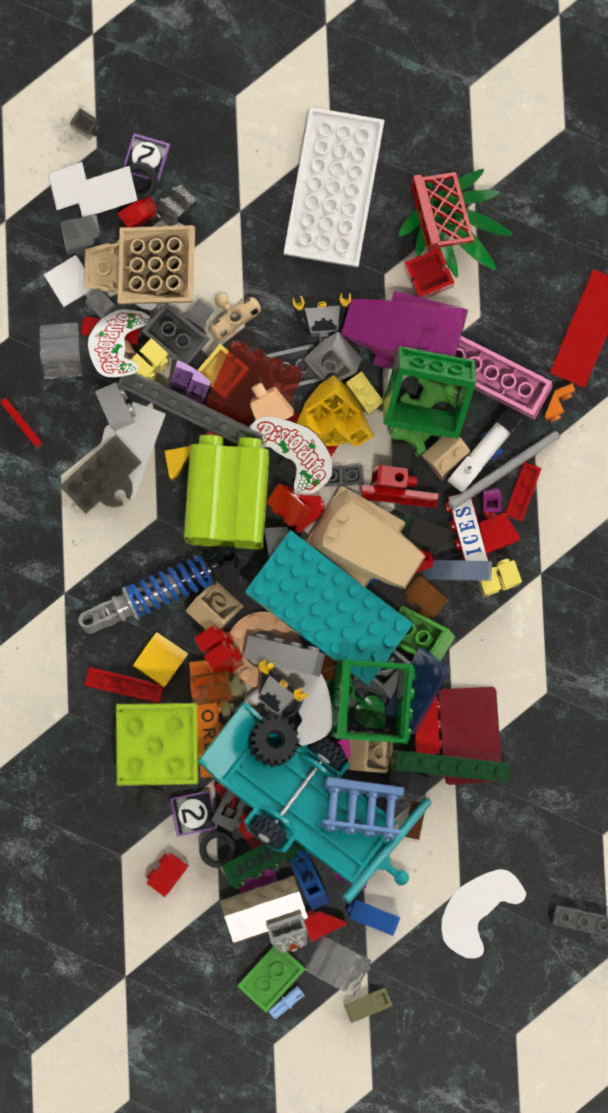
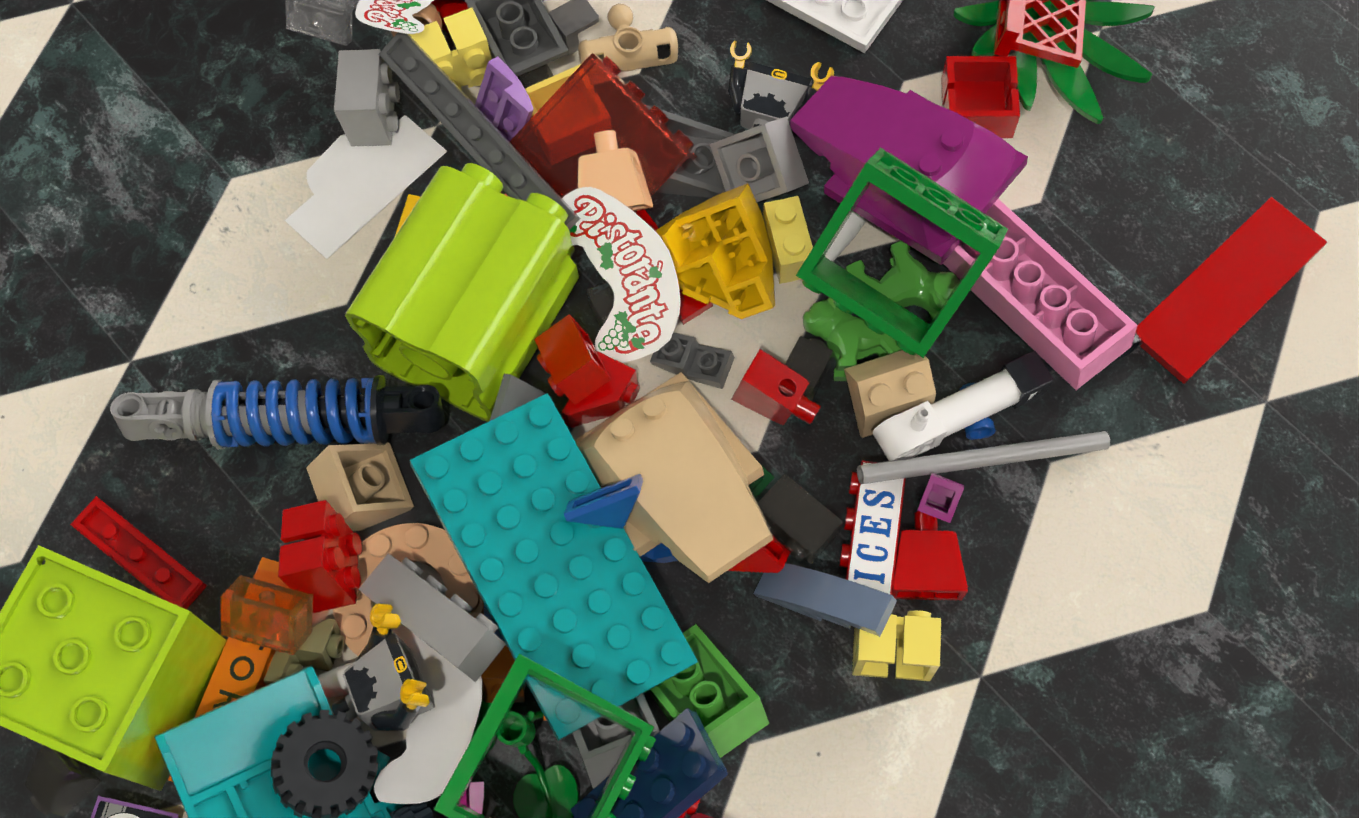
camera: 25 degrees right, 15 degrees down
(21, 423) = (211, 73): red tile -> none
(102, 477) = (292, 203): clear smoke plate -> none
(160, 659) = (221, 536): yellow slope -> none
(343, 573) = (607, 505): none -> blue slope
(399, 496) = (776, 430): red tile -> none
(426, 598) = (745, 627): clear orange brick -> none
(522, 491) = (1004, 514): red tile -> none
(555, 409) = (1119, 393): orange slope -> none

